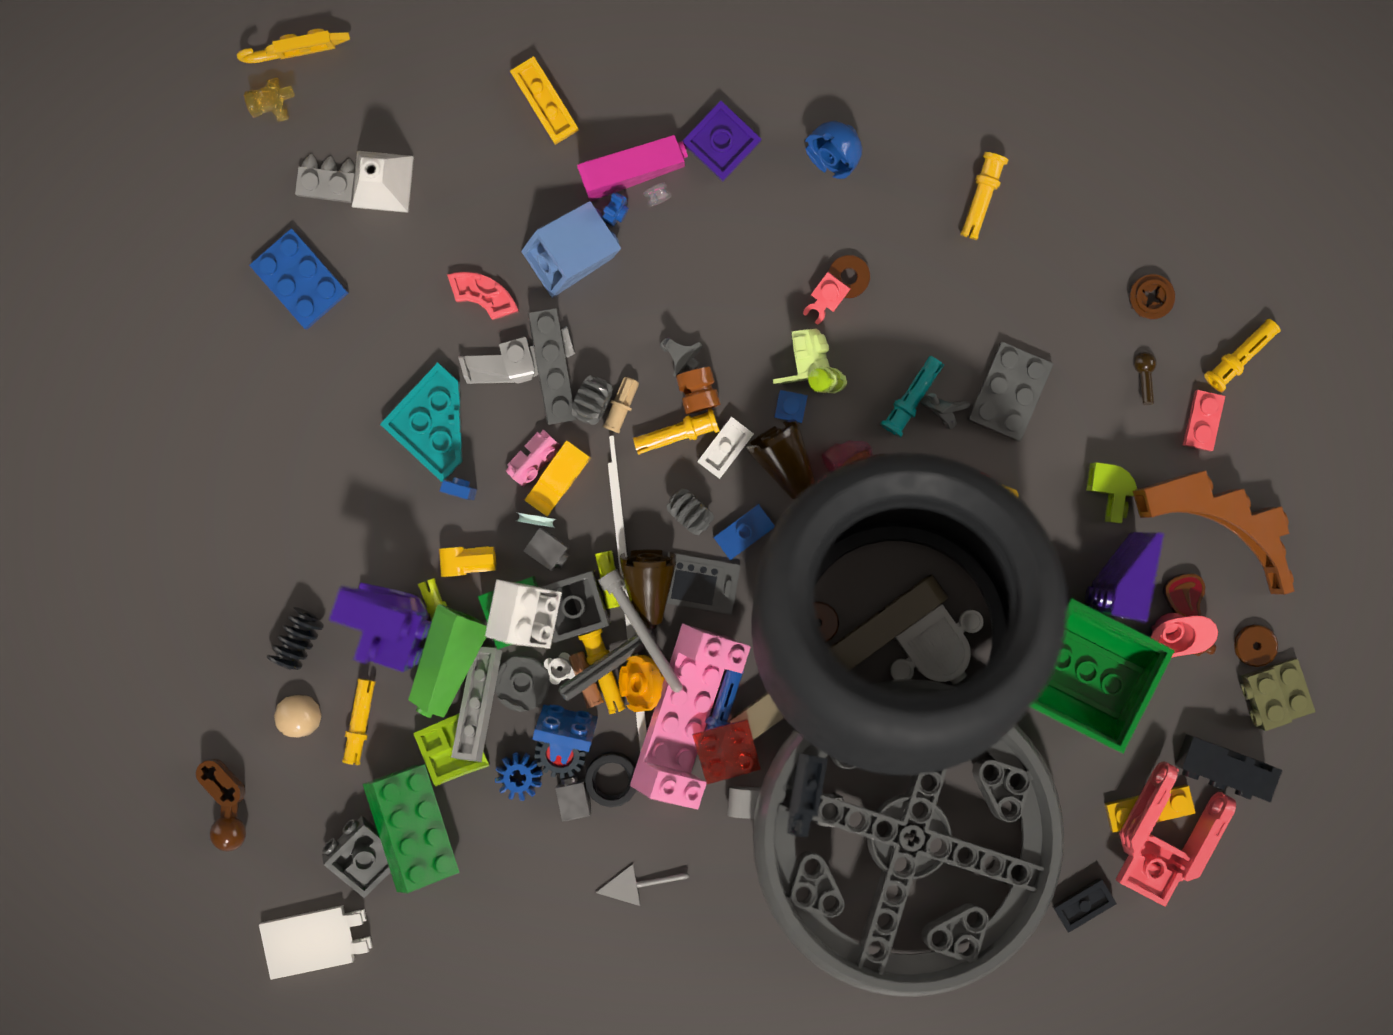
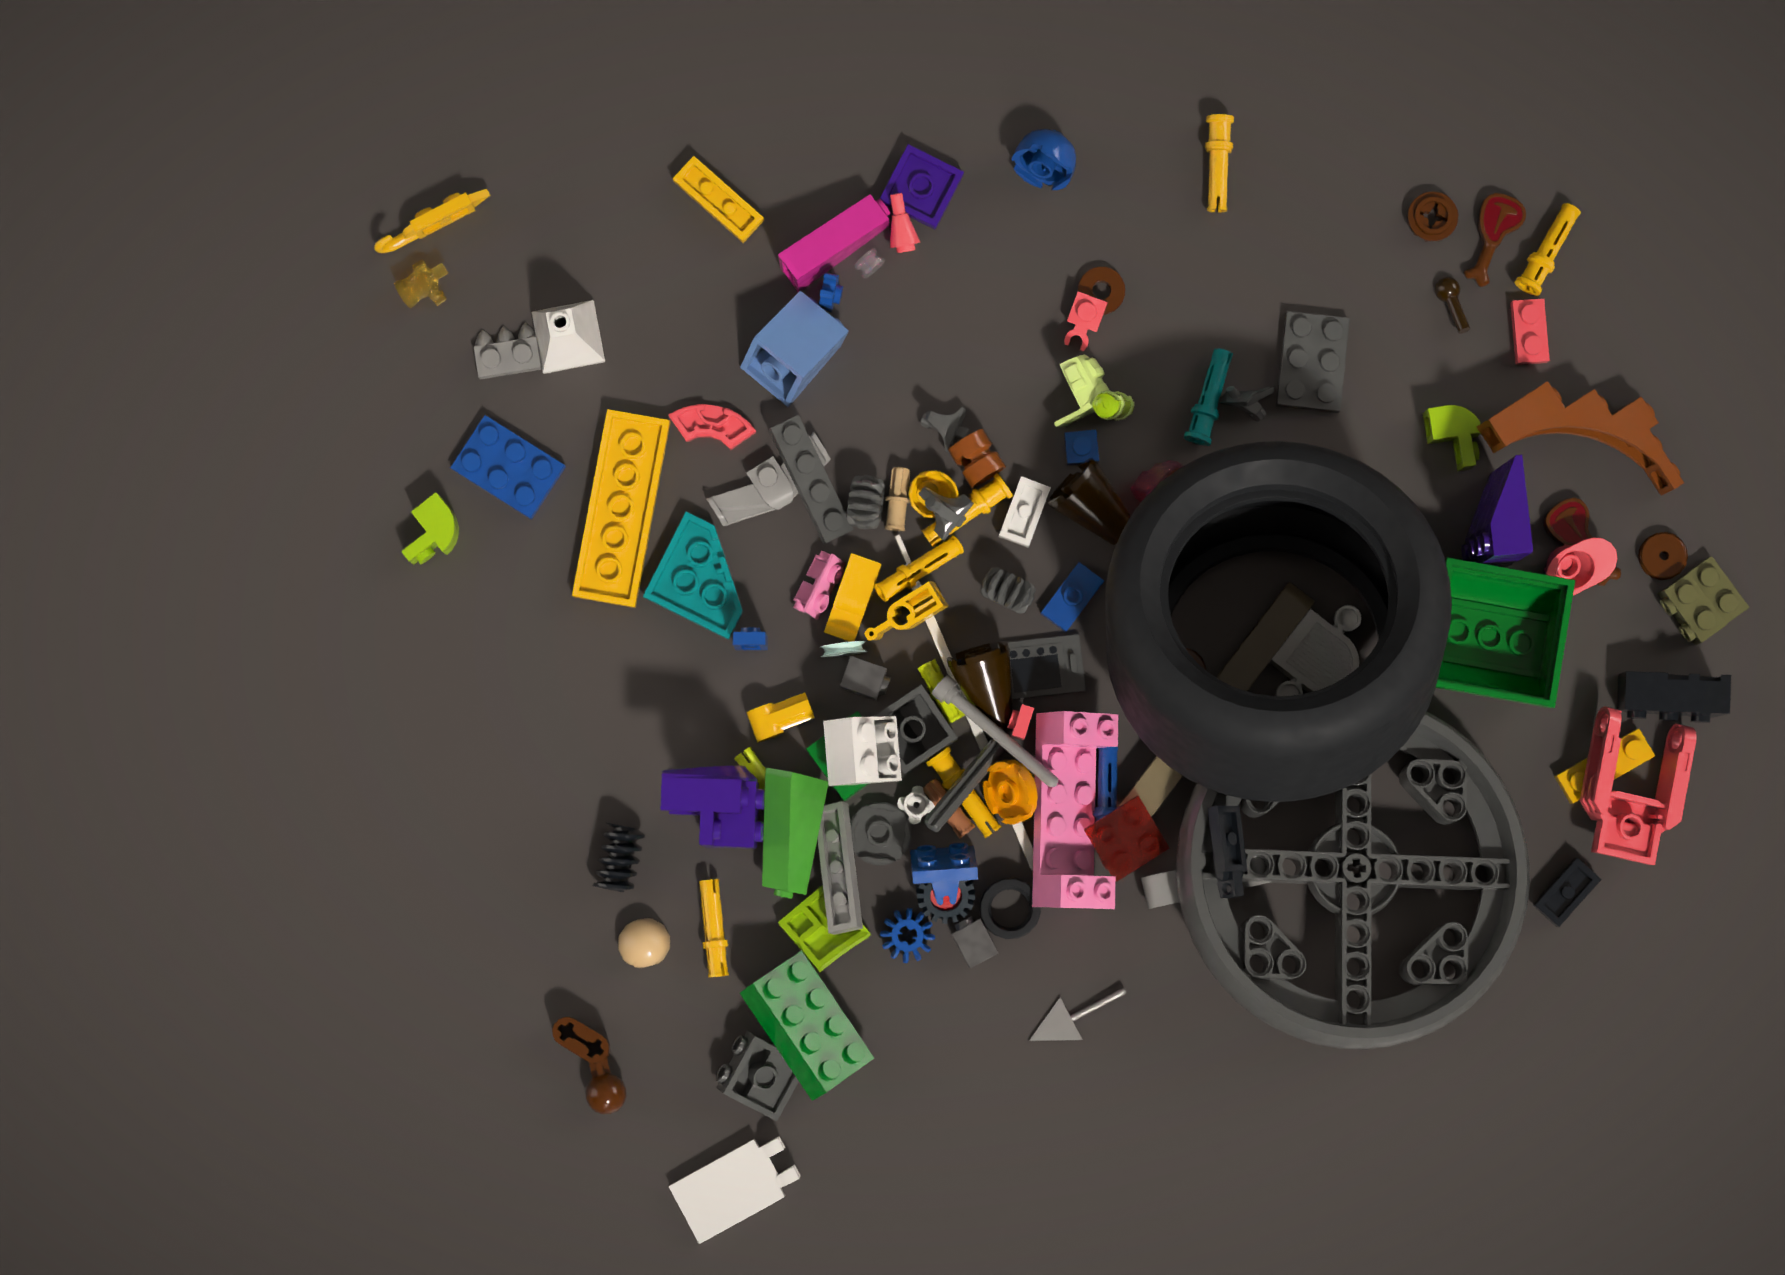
camera: 15 degrees left, 5 degrees down
(225, 316) = (440, 529): none -> lime brick
(384, 343) = (621, 508): none -> yellow plate
(606, 508) = (917, 614): none -> yellow piece
(609, 473) = (908, 574): none -> yellow pin
(651, 410) = (935, 481): none -> yellow hair
(658, 429) = (947, 511): none -> dark grey piece
(666, 627) = (1020, 721): none -> coral plate
(693, 176) = (903, 233): none -> coral cone
(1207, 314) = (1496, 218): none -> reddish brown piece

